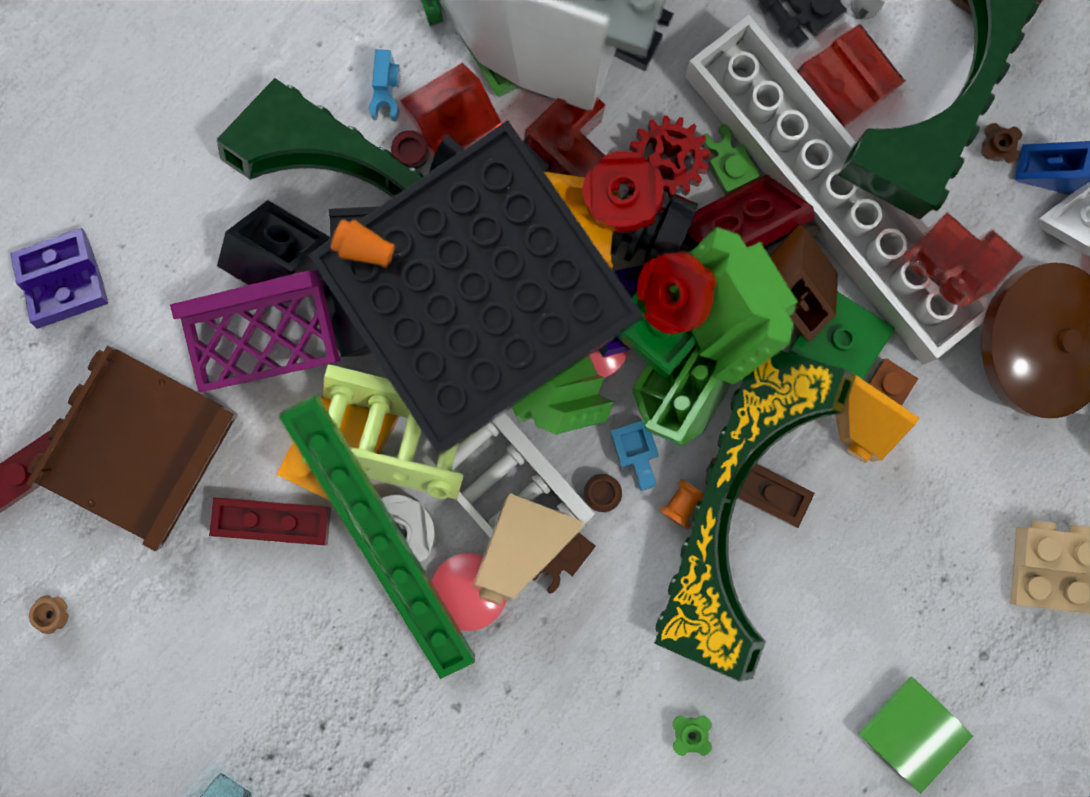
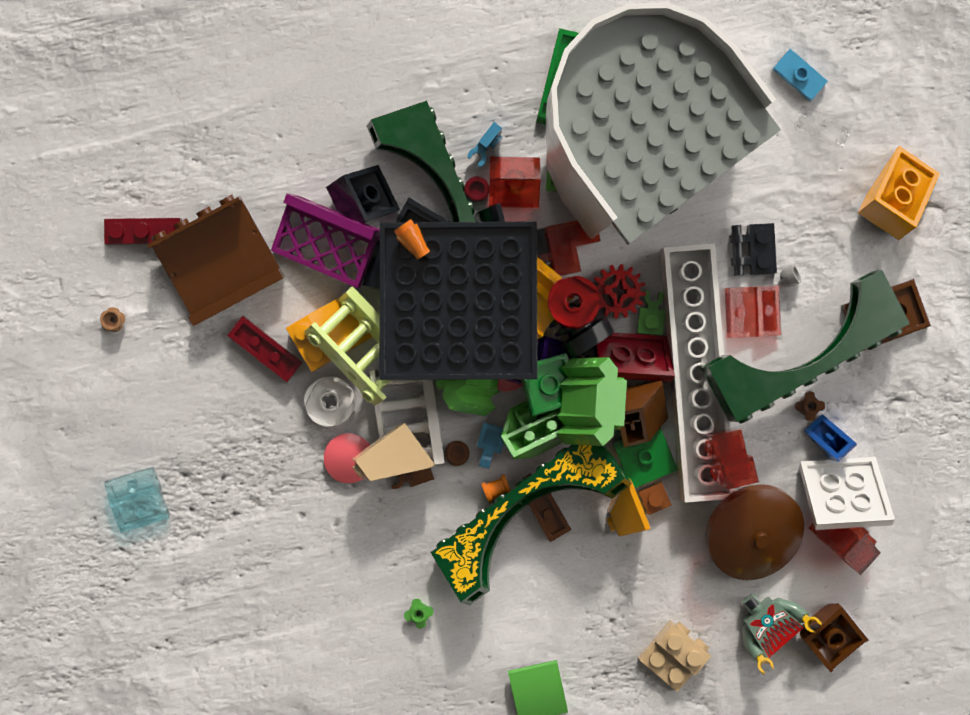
camera: 30 degrees right, 5 degrees up
(59, 278) = (233, 132): dark purple slope -> none
(377, 535) = (319, 399): green plate -> none
(695, 289) = (576, 377): red plate -> none

